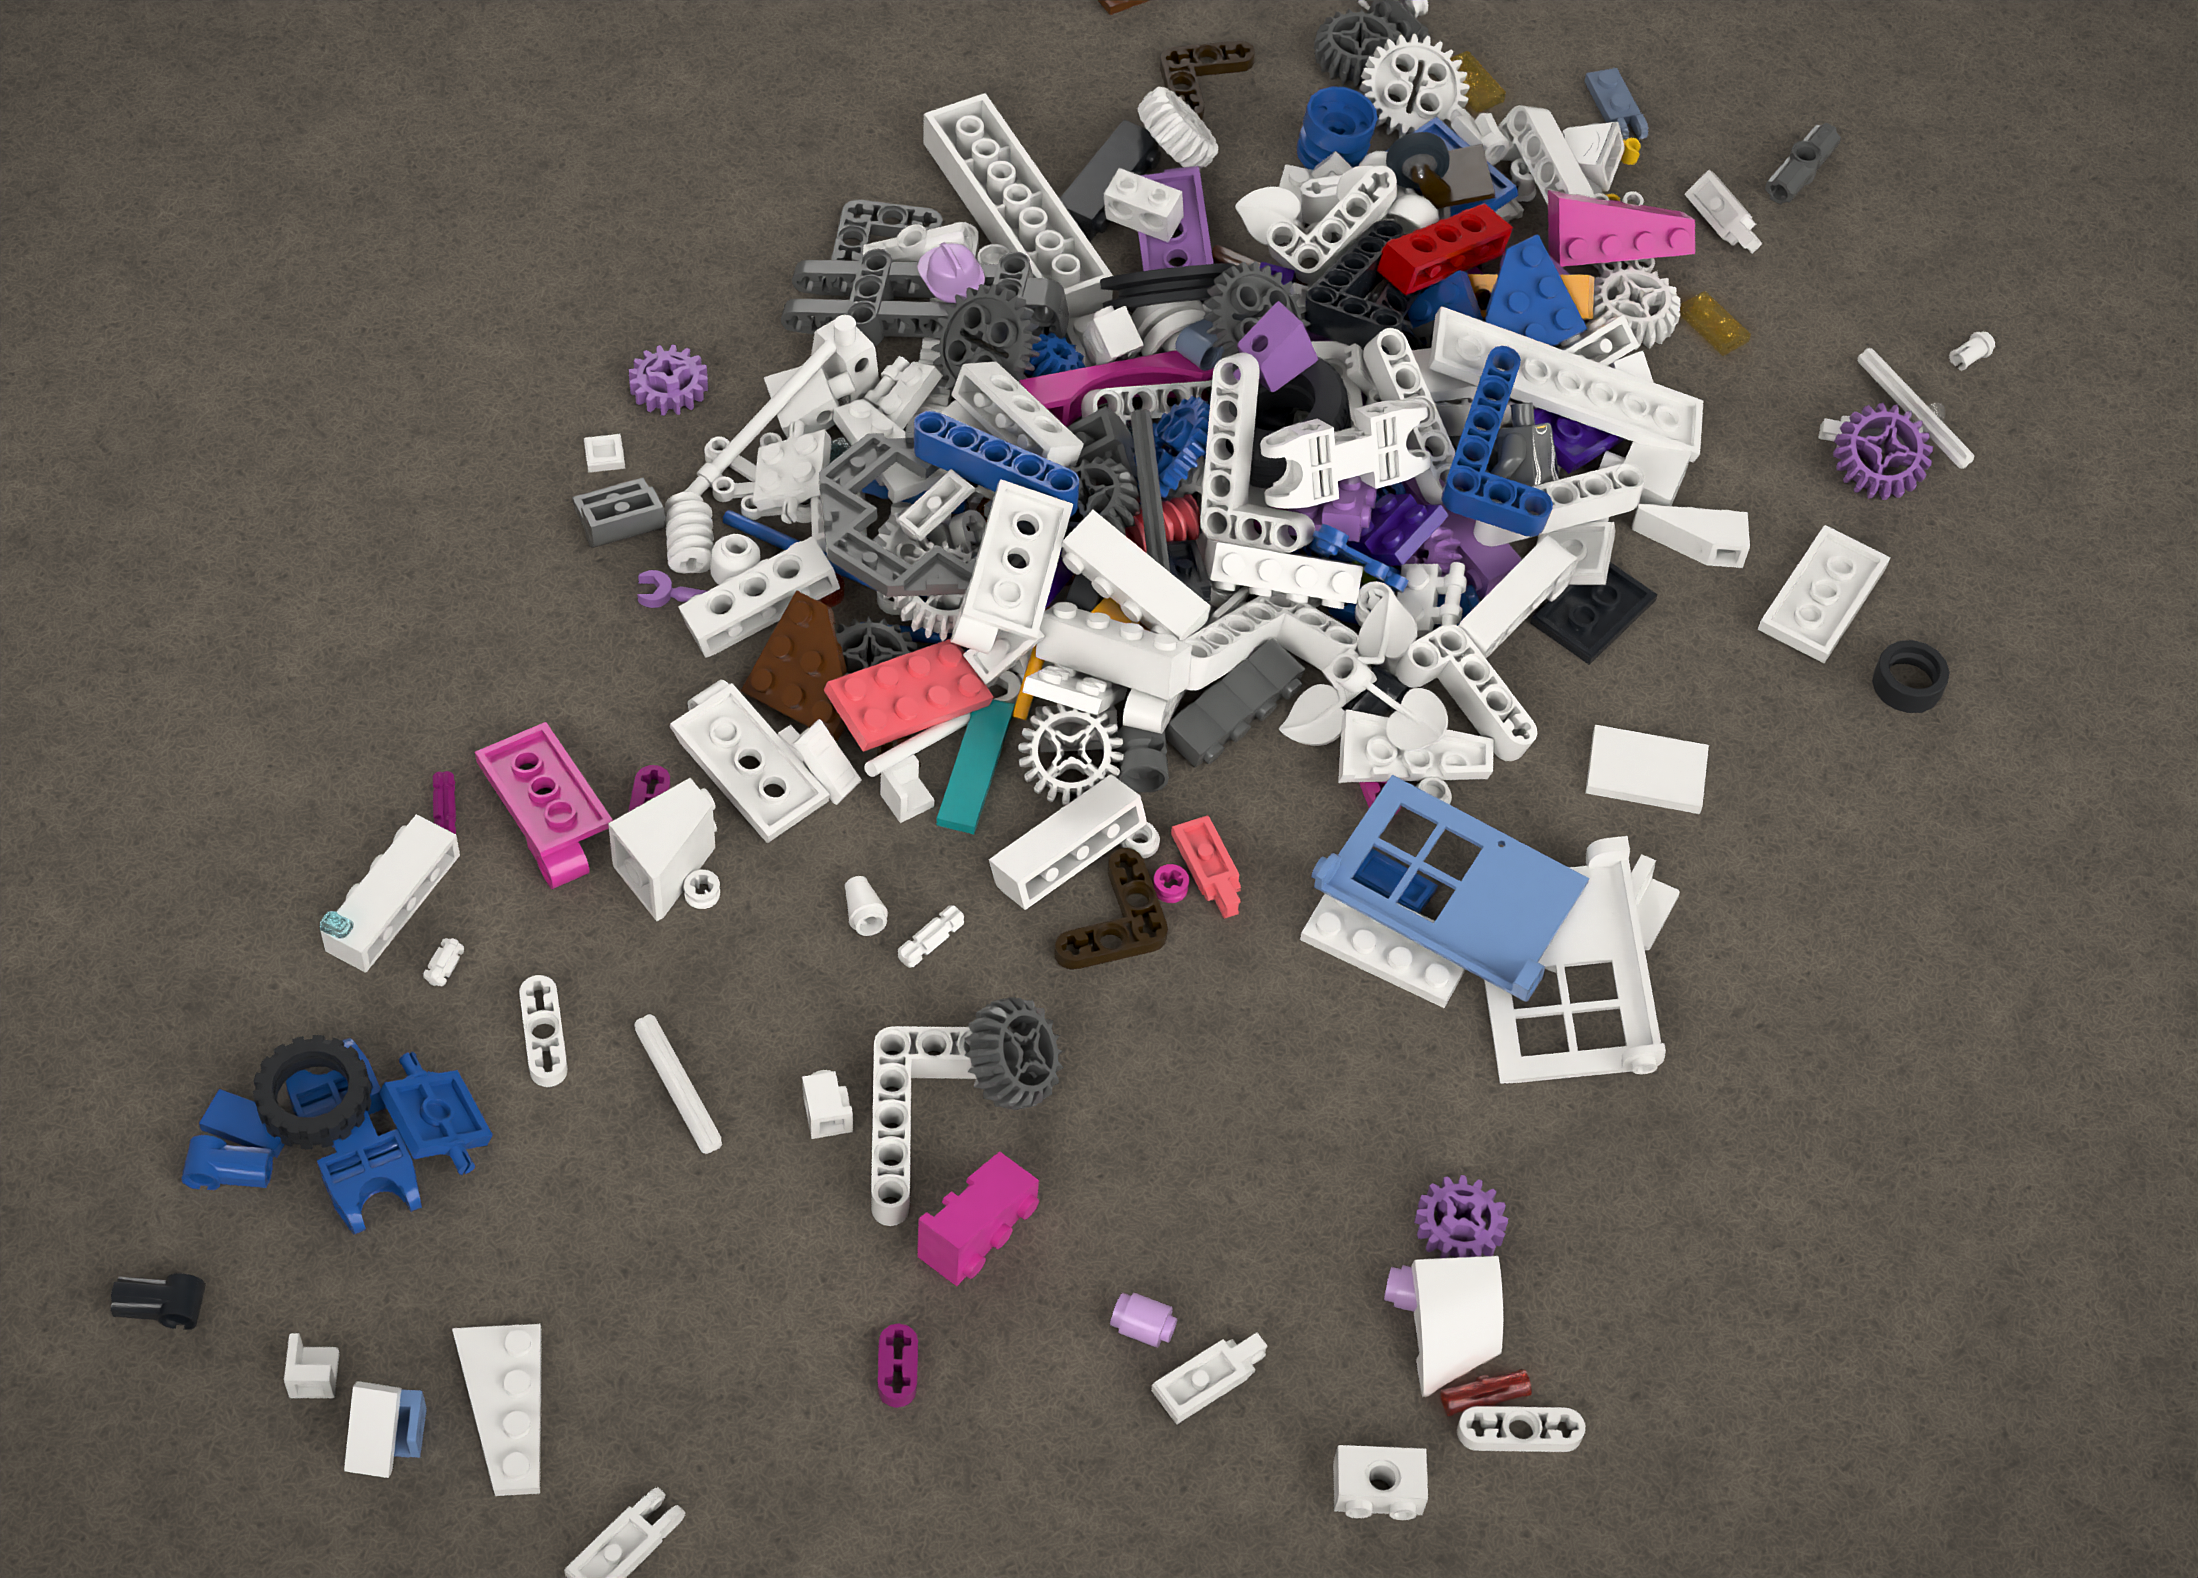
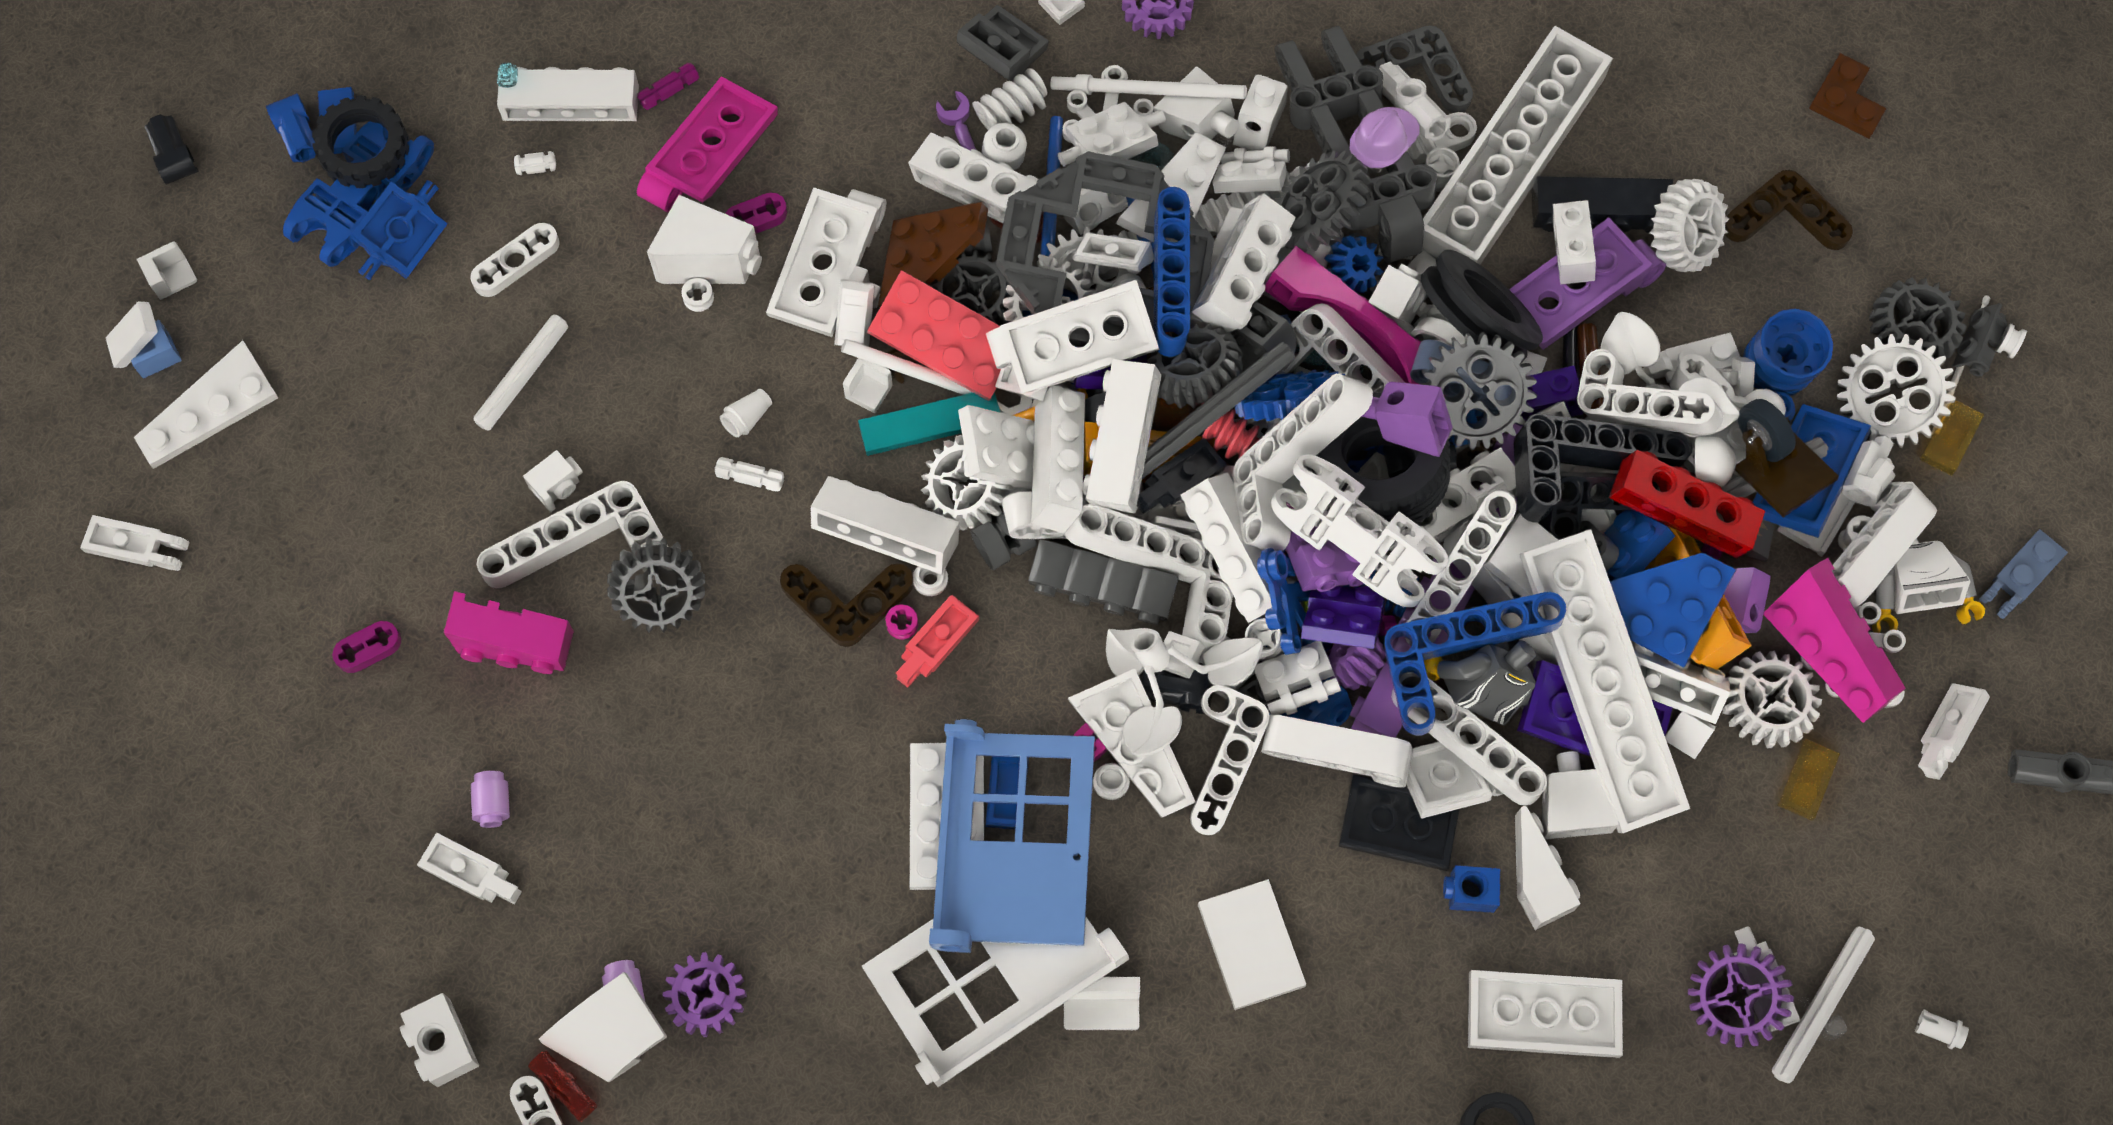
camera: 65 degrees right, 15 degrees up
(1688, 583) = (1486, 880): none -> blue brick

